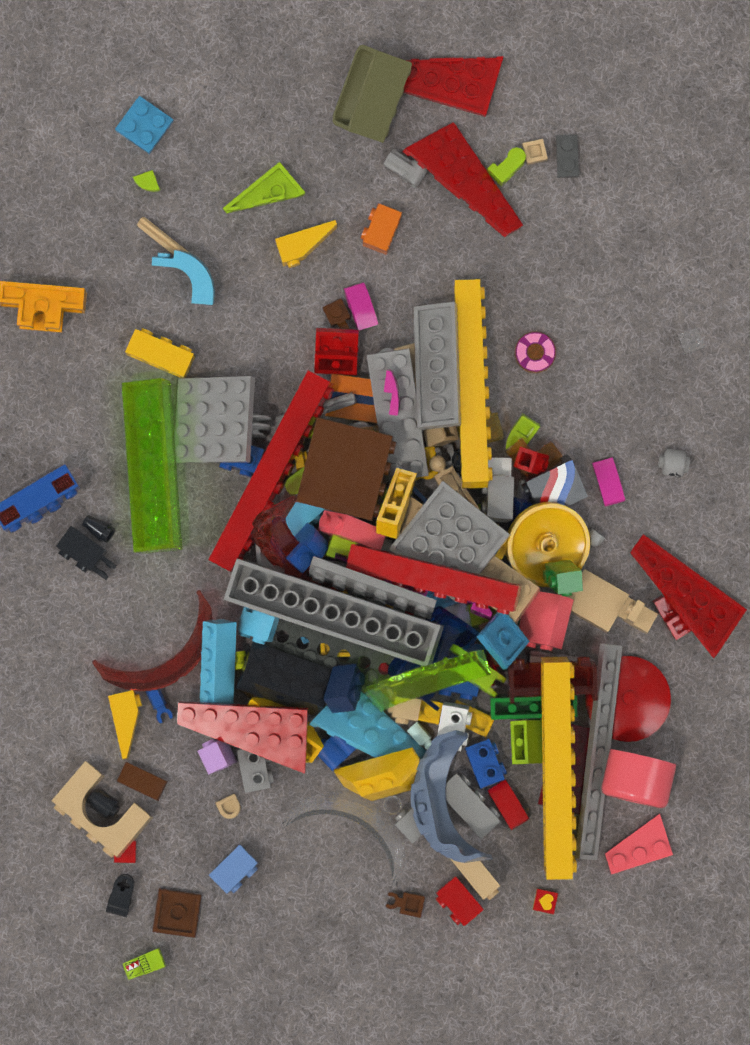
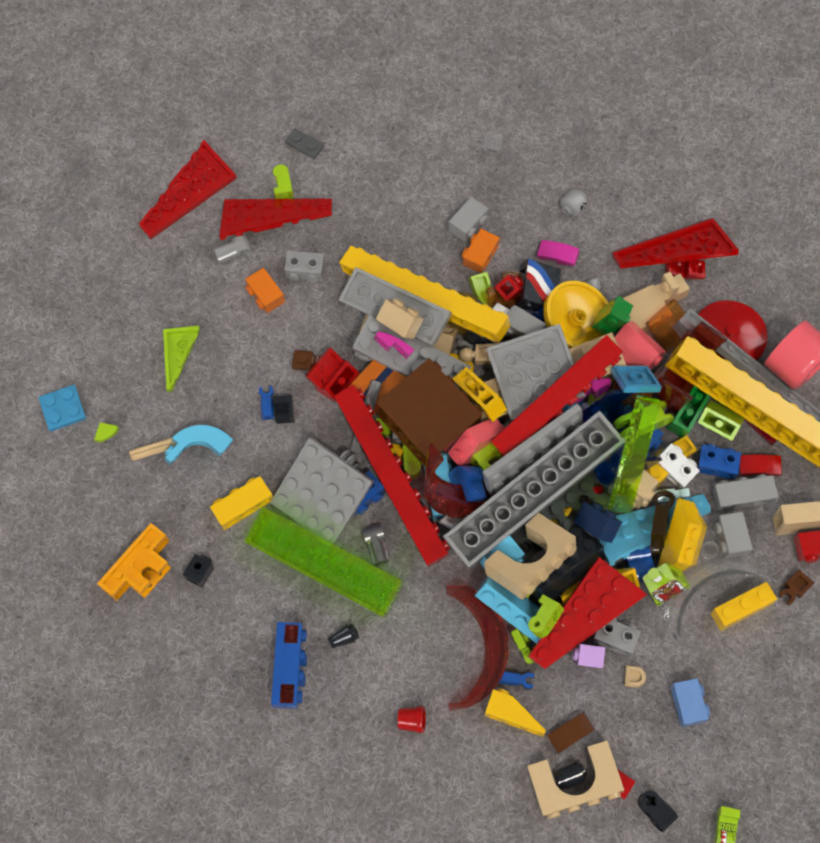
camera: 50 degrees left, 15 degrees down
(63, 636) = (412, 719): none -> red piece
(74, 359) = (198, 570): none -> black brick
(84, 551) = (356, 659): black hinge -> none
(177, 913) = (697, 774): reddish brown tile -> none
(192, 690) = (523, 644): none -> lime plate
(202, 498) = (375, 541): none -> flat silver piece
(220, 696) = (546, 617): none -> lime leg
(239, 654) = (525, 577): none -> tan arch
(271, 309) = (267, 406): none -> blue bar
(275, 329) = (283, 409): none -> black panel
(300, 244) = (233, 355): yellow slope -> none
(324, 781) = (665, 582): none -> lime torso
(355, 866) = (743, 606): none -> yellow brick
(361, 306) = (311, 338): dark pink slope -> none
(371, 93) = (161, 234): olive windscreen -> none
(382, 744) = (660, 520): none -> dark brown piece
(421, 381) = (400, 318): none -> tan brick
(429, 800) = (729, 515): sand blue windscreen -> none
(432, 249) = (304, 266): none -> light grey brick
(535, 151) = (287, 159): tan plate -> none
(535, 352) = (429, 245): tile -> none
(560, 406) = (480, 251): none -> orange brick
(585, 374) = (468, 219): none -> light grey brick
(593, 628) = (662, 323): none -> clear orange tile

